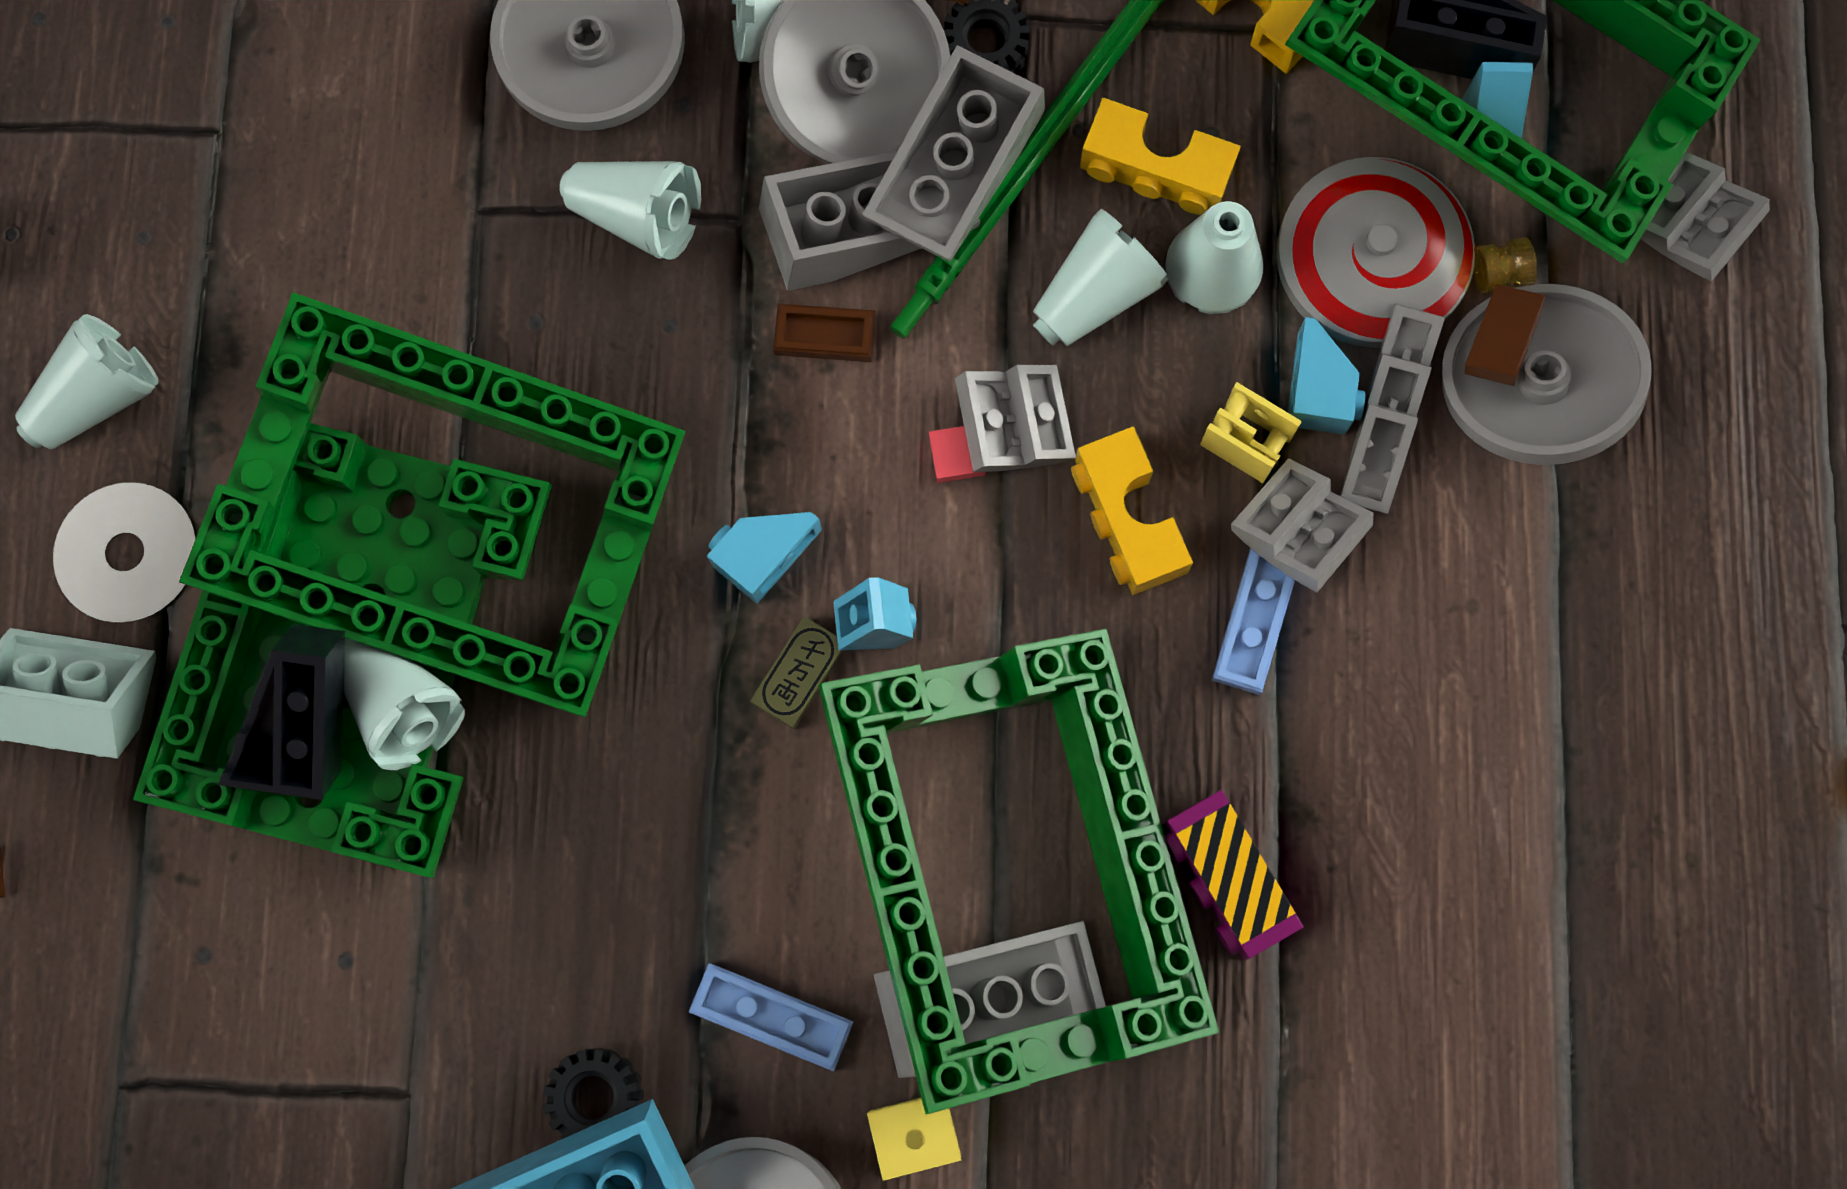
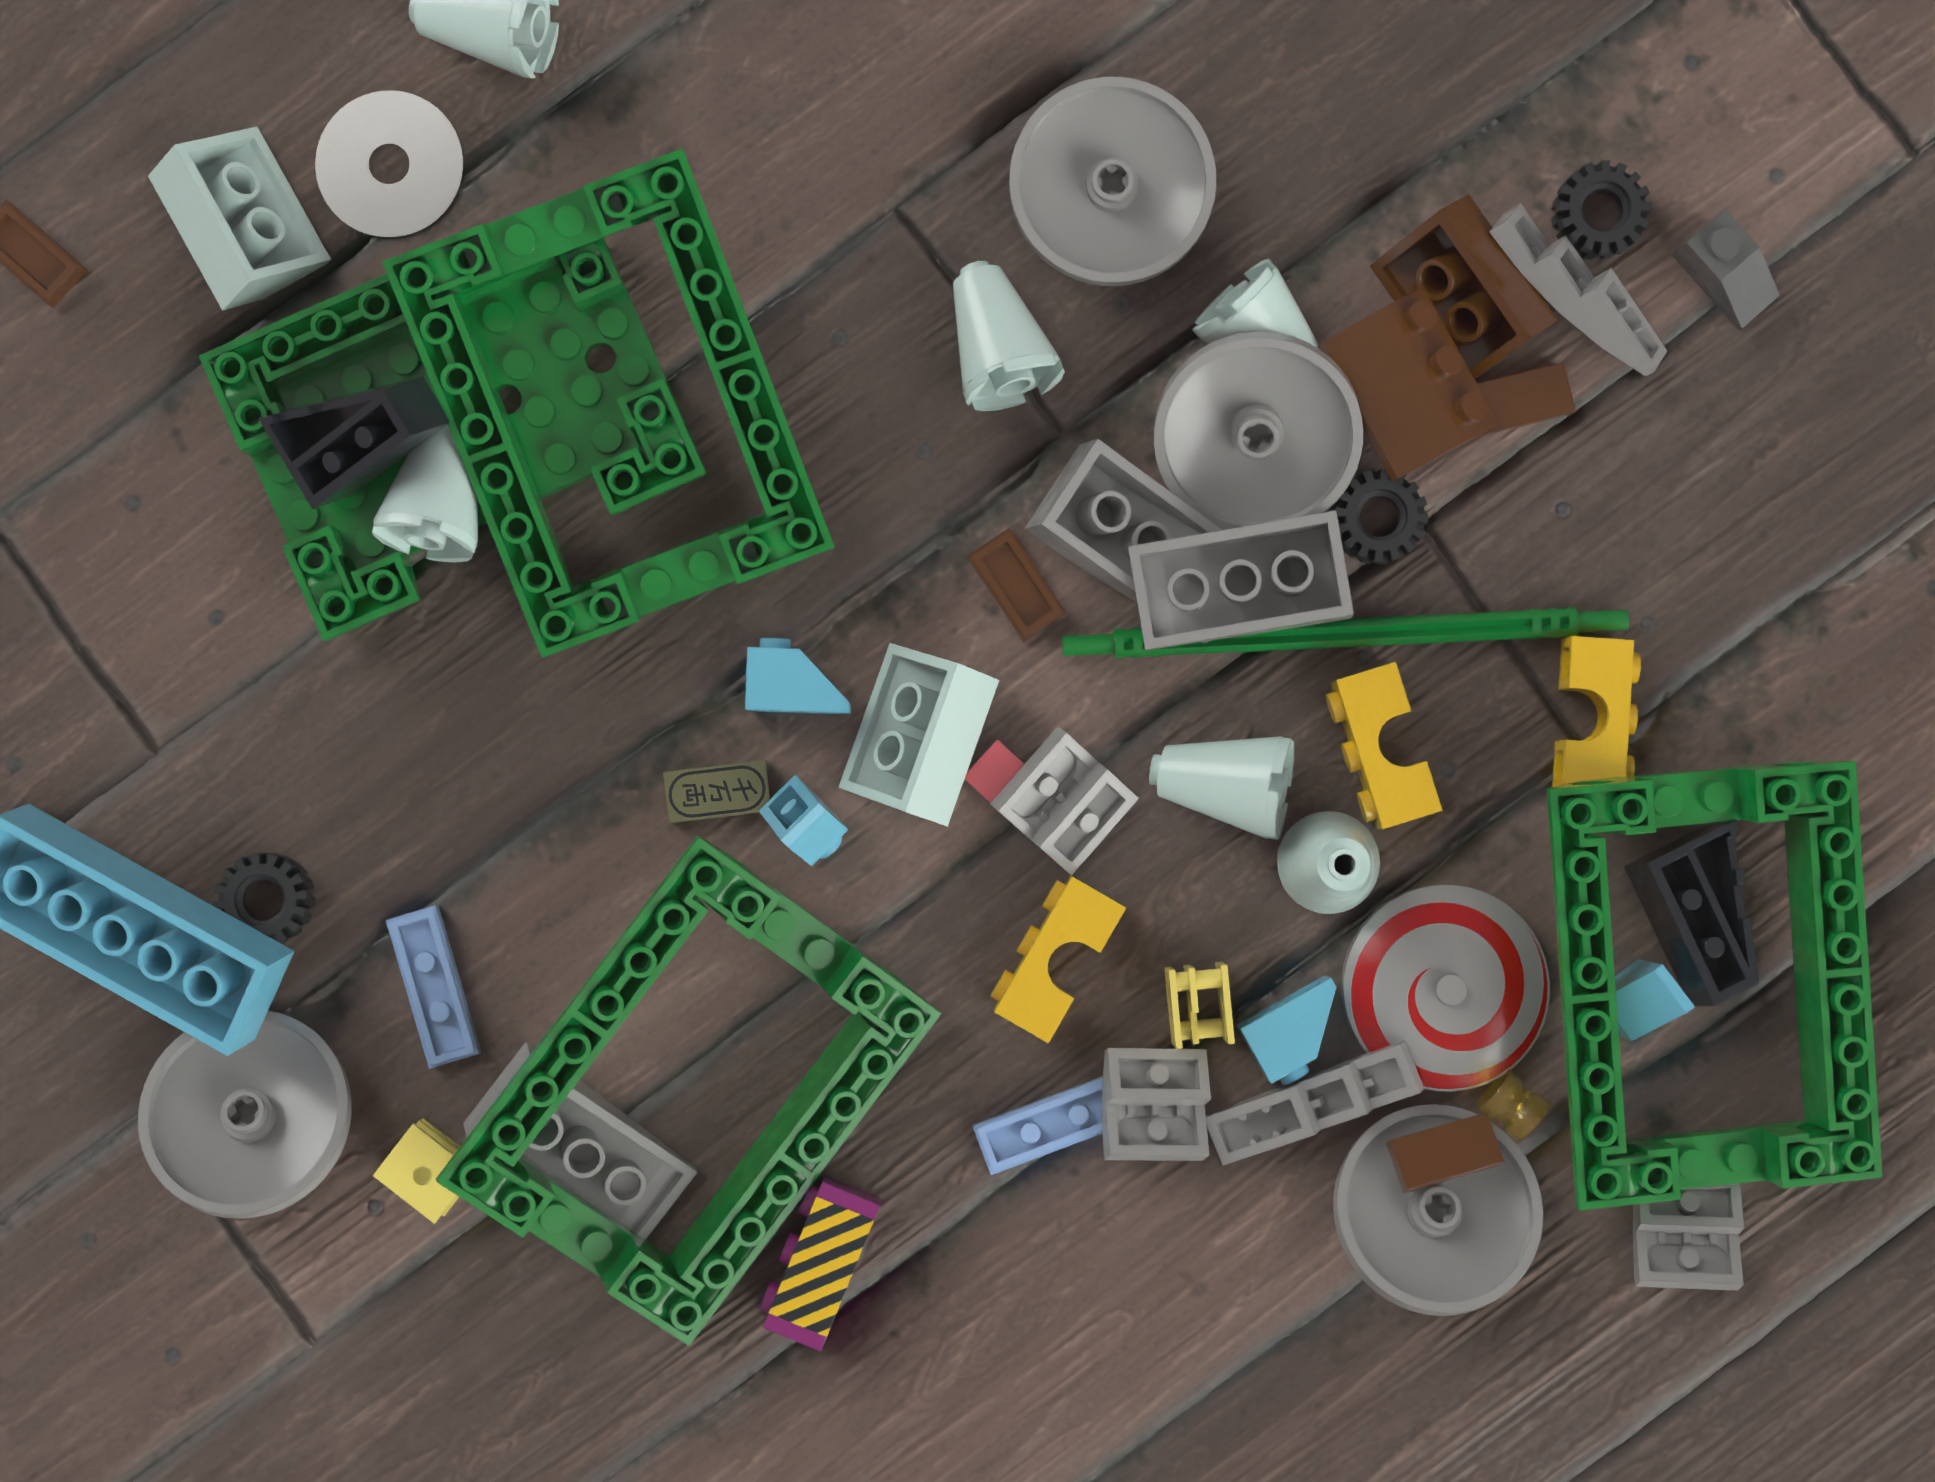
camera: 45 degrees right, 10 degrees up
(877, 484) = (919, 733): none -> light aqua slope

